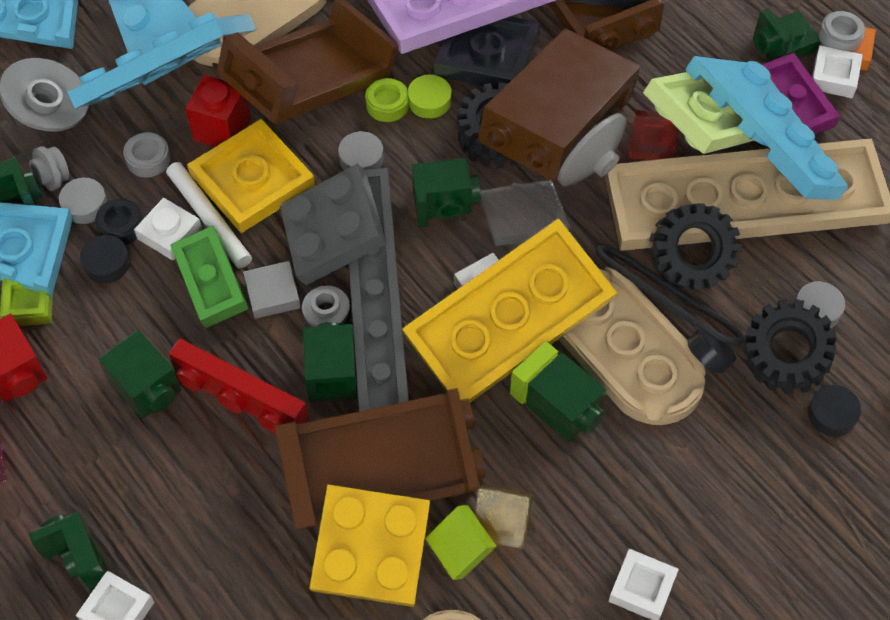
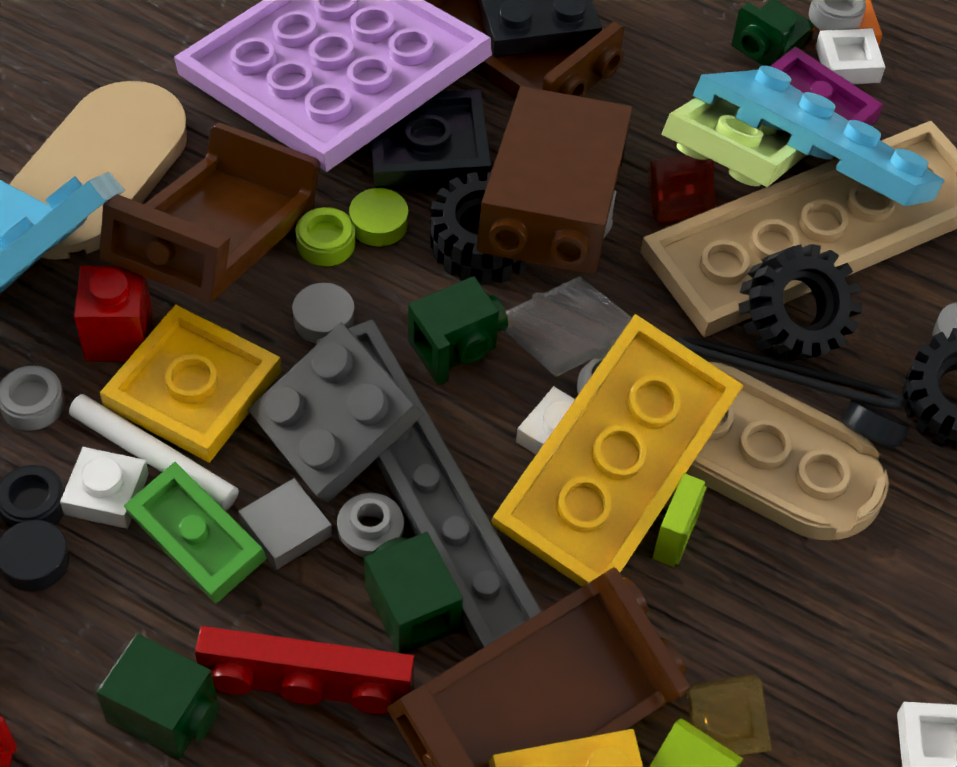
camera: 25 degrees left, 5 degrees down
(566, 398) = (735, 539): dark green brick -> none
(594, 152) = (633, 226): light grey dish -> none

